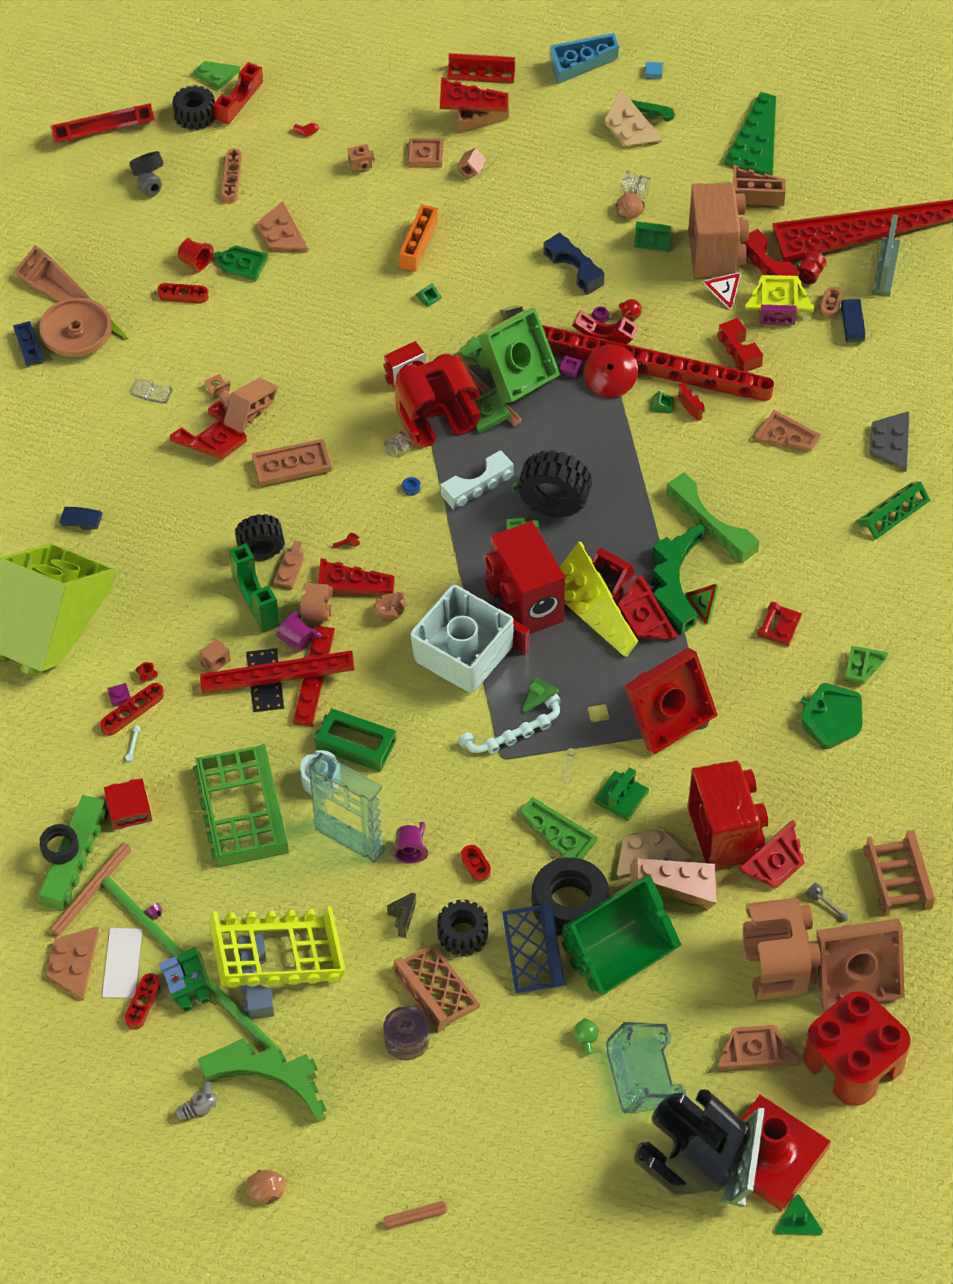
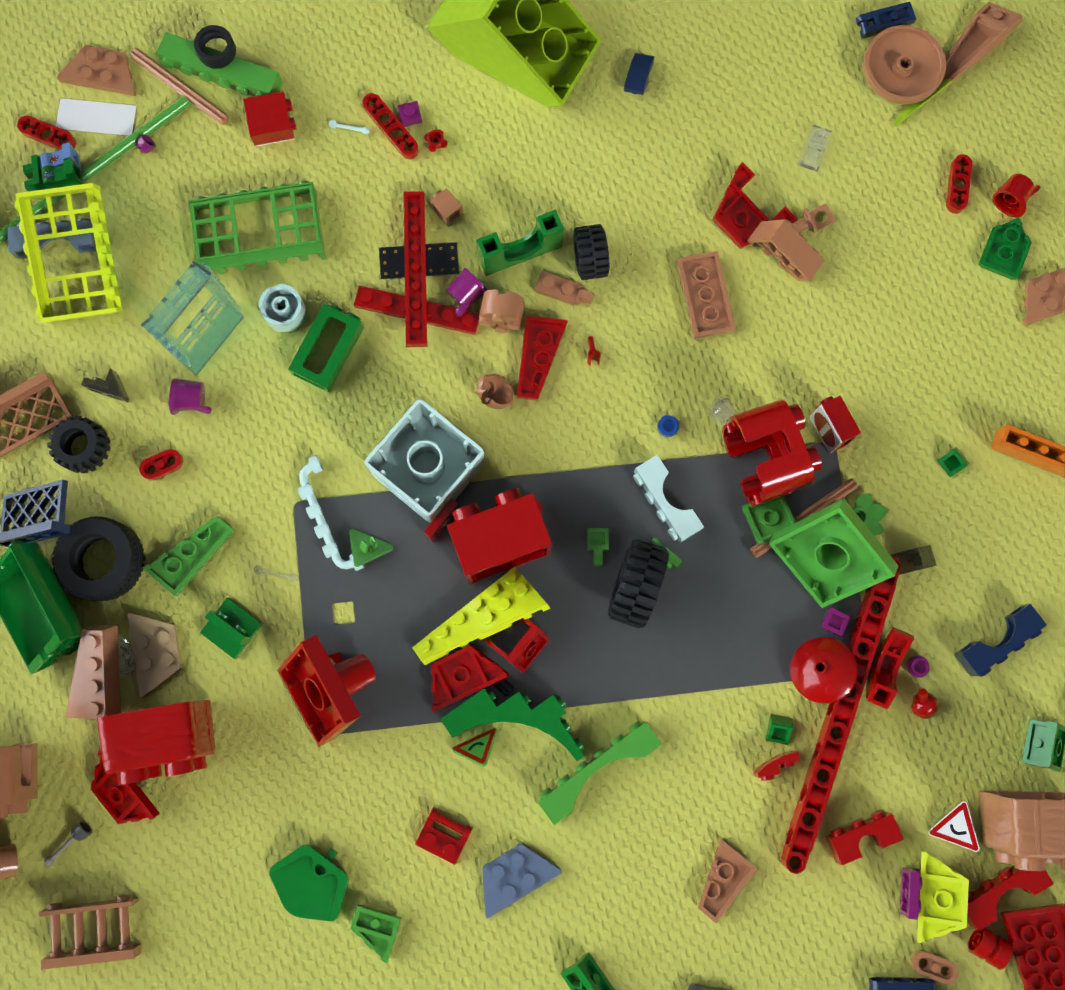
camera: 90 degrees right, 25 degrees up
(806, 574) = (514, 876): none -> sand blue wing

